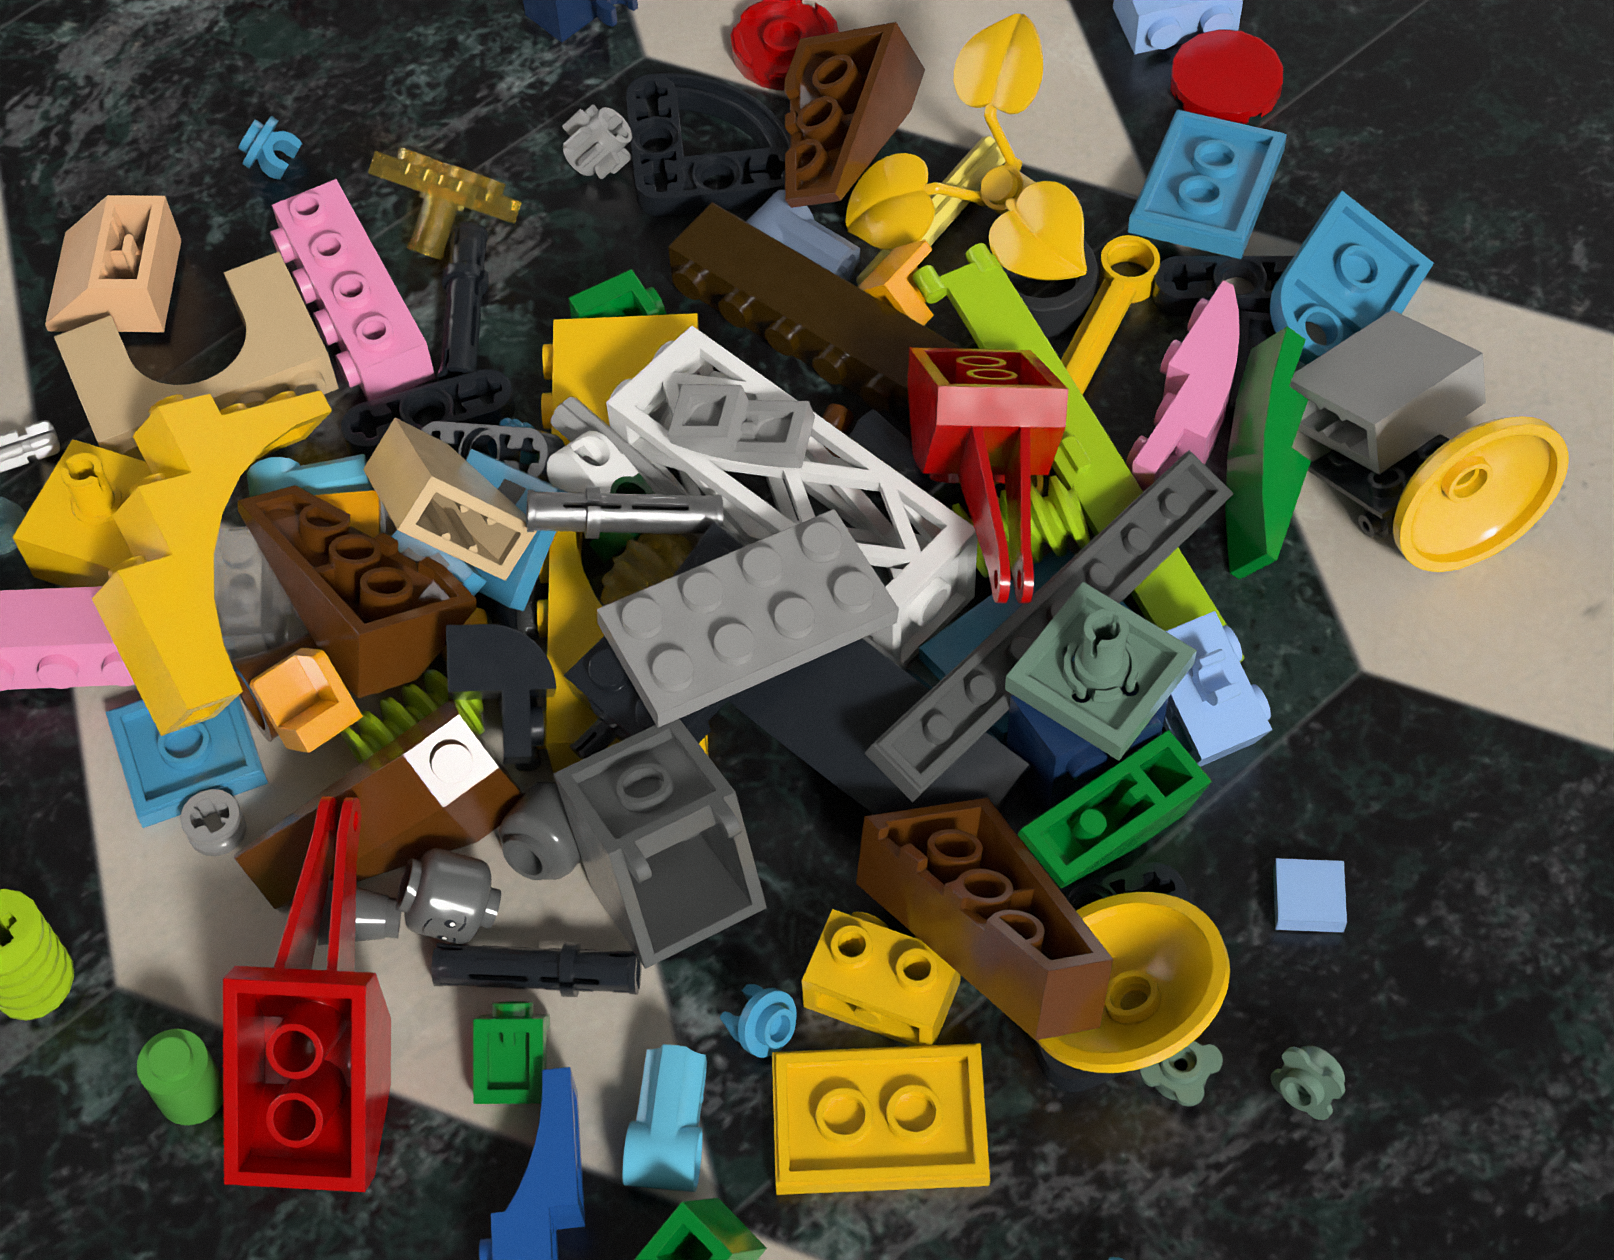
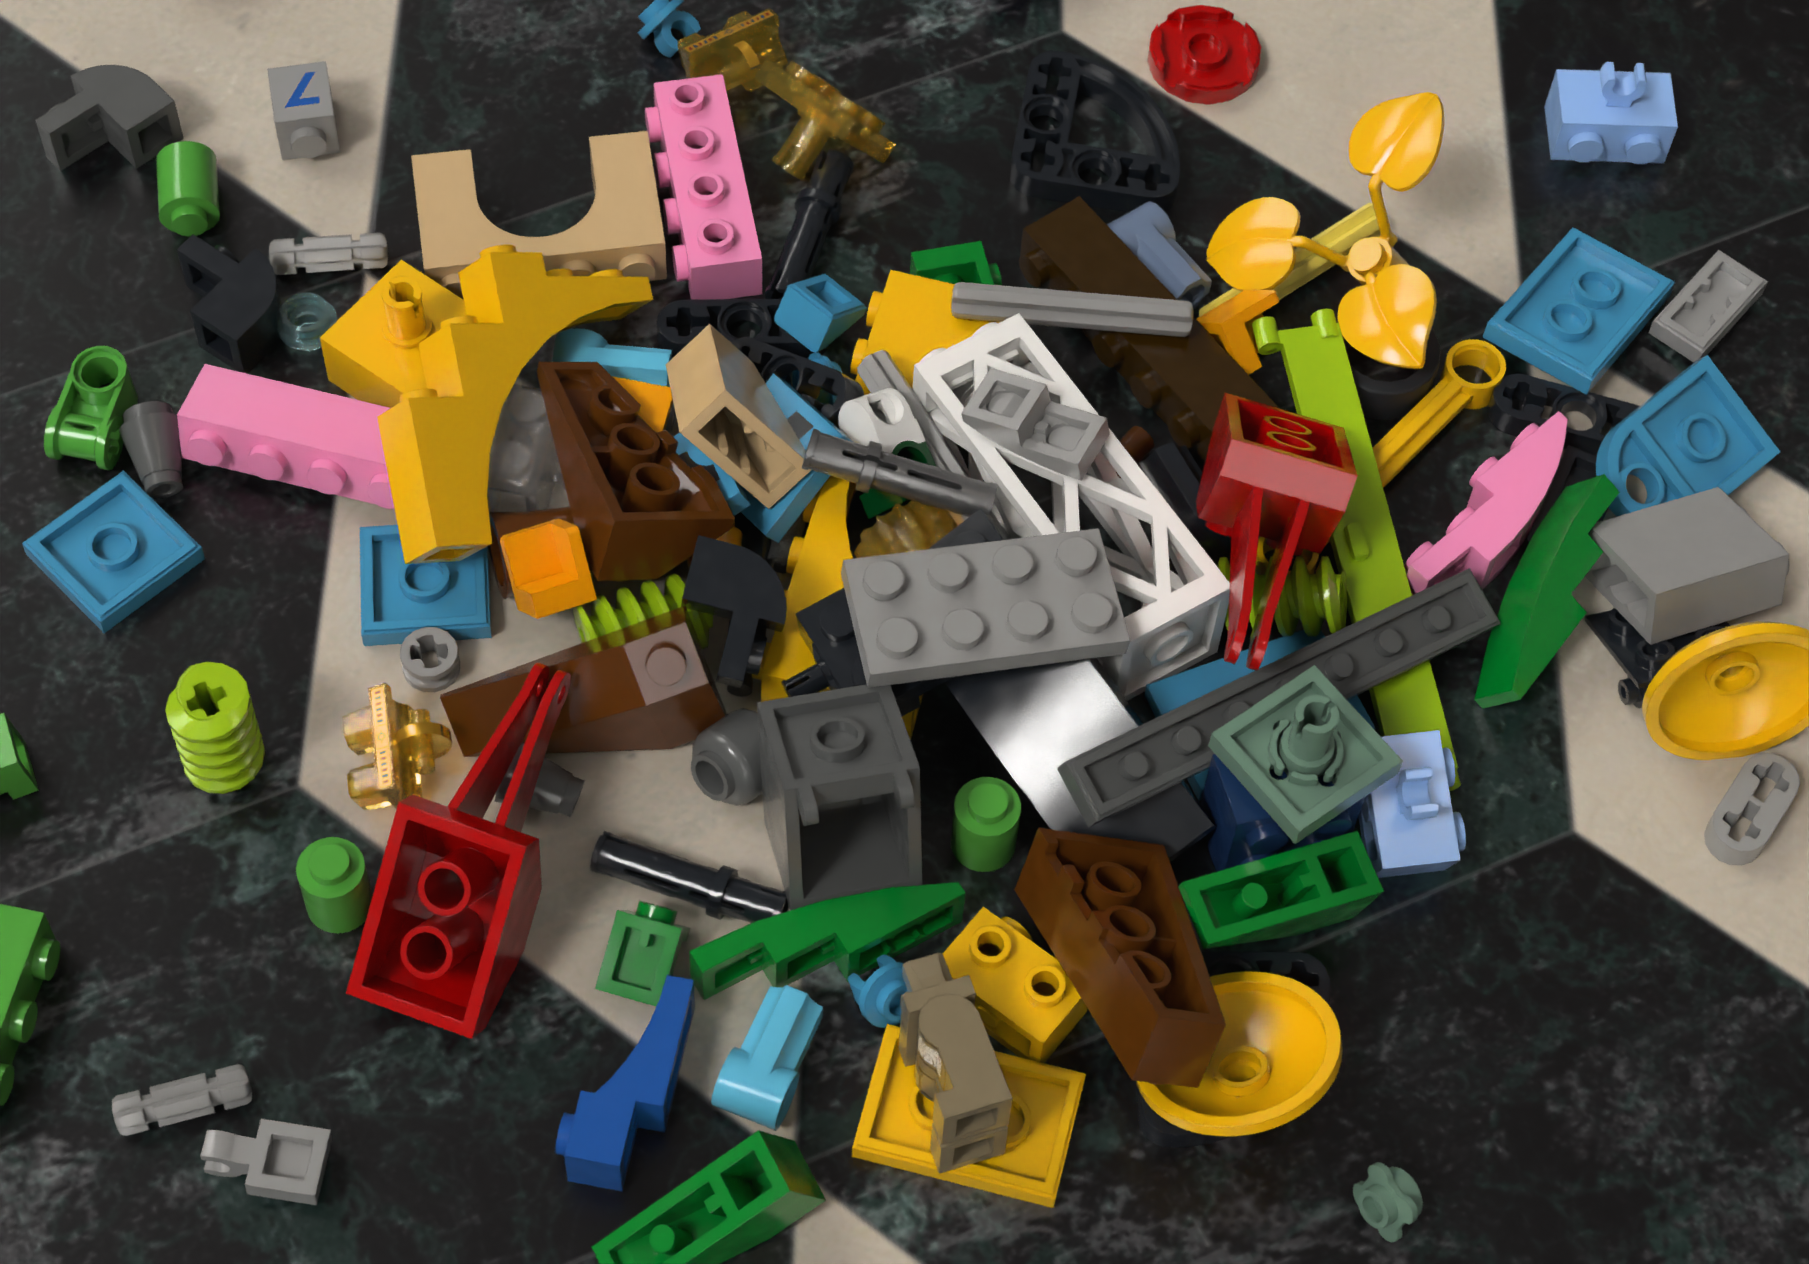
camera: 10 degrees right, 0 degrees up
(117, 265) = (490, 102): light nougat slope -> none
(211, 919) = (403, 749): none -> clear yellow hips
(341, 154) = (735, 50): none -> clear yellow hips
(447, 896) = (627, 790): dark grey head -> none
(495, 379) = (818, 311): none -> dark azure slope
(597, 141) = (987, 104): light grey gear -> none
(701, 972) = (840, 930): none -> green slope
(739, 309) = (1073, 309): none -> light grey axle
(807, 826) = (985, 824): none -> bright green brick
(844, 107) = (1241, 133): reddish brown wedge -> none
(853, 1074) = (953, 1064): none -> dark tan hips
(1188, 1084) = (1267, 1170): sand green plate -> none
(1227, 76) = (1635, 207): red tile -> none
(1309, 895) = (1448, 1029): light blue tile -> none
(1323, 149) = (1708, 307): none -> light grey plate
(1508, 598) = (1741, 802): none -> light grey beam

